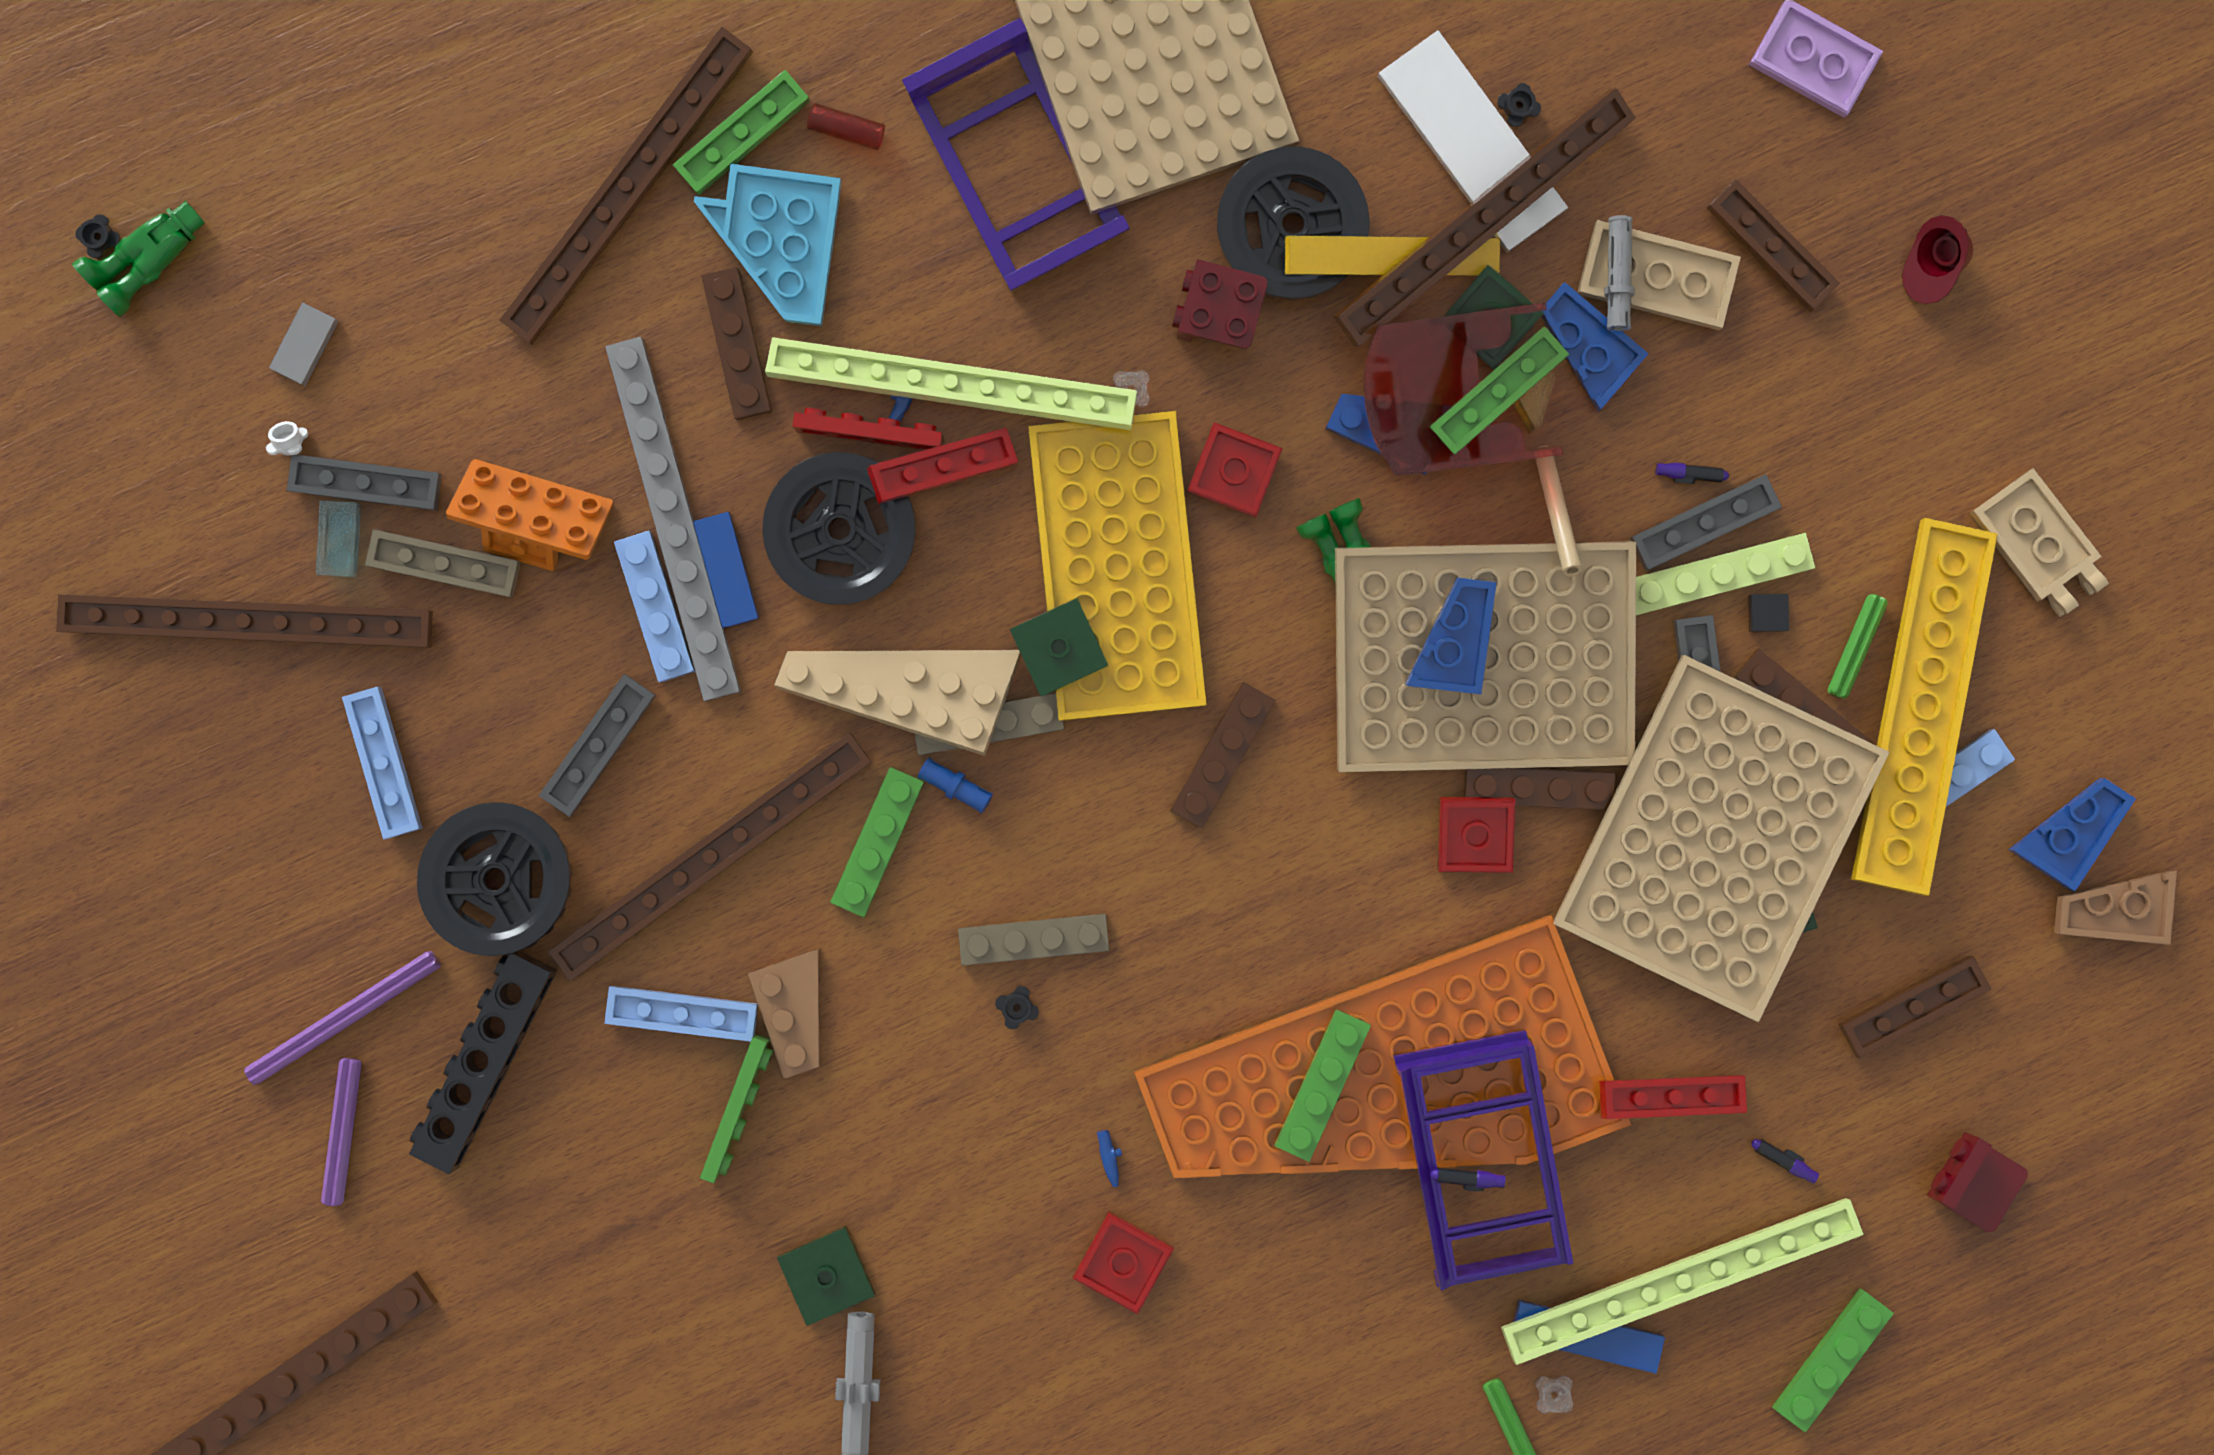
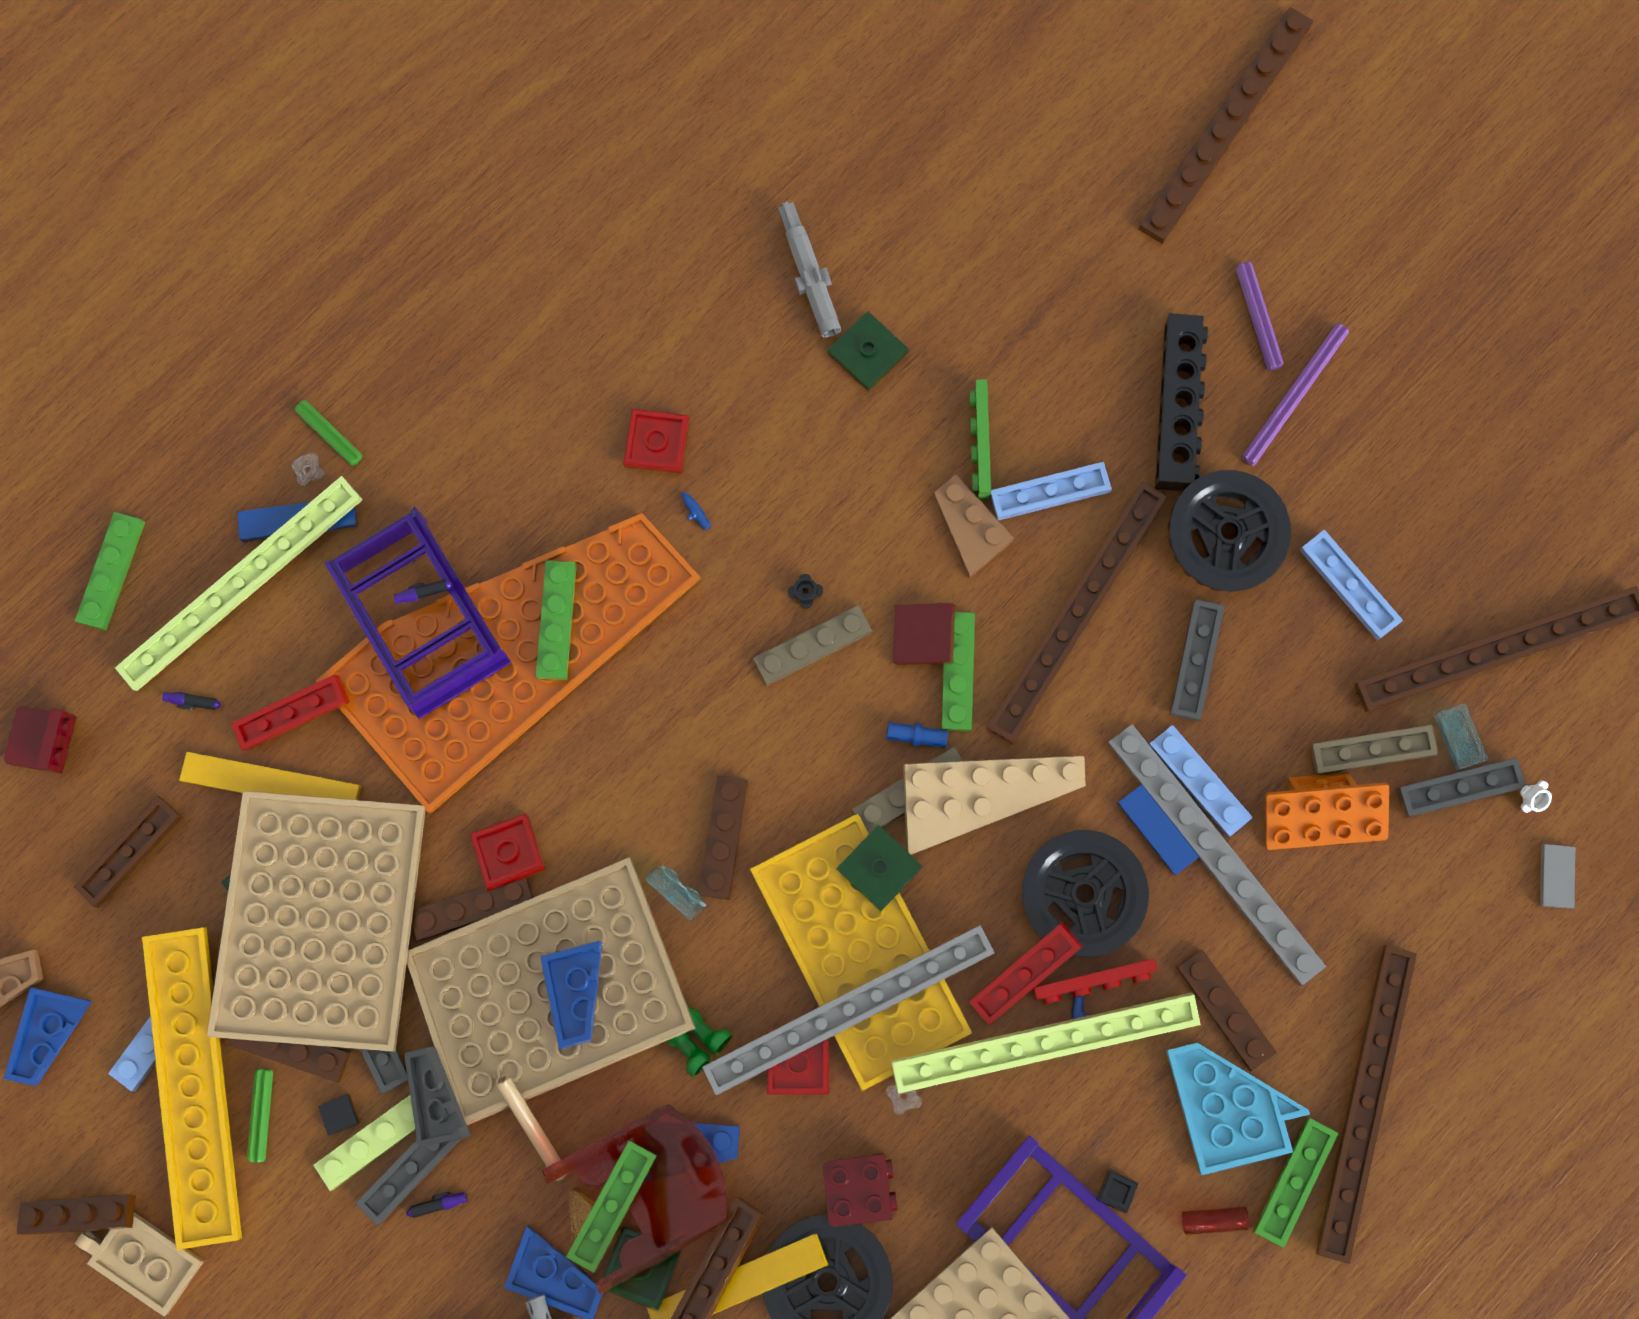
camera: 170 degrees right, 10 degrees down
(899, 900) = (924, 634): none -> dark red tile
(939, 198) = (1117, 1191): none -> black tile
(1155, 502) = (848, 1010): none -> light grey plate
(1304, 720) = (670, 887): none -> clear light blue plate
(1657, 583) = (433, 1100): none -> dark grey wing
(1731, 1030) = (241, 777): none -> yellow tile
(2097, 613) = (76, 1214): none -> reddish brown plate

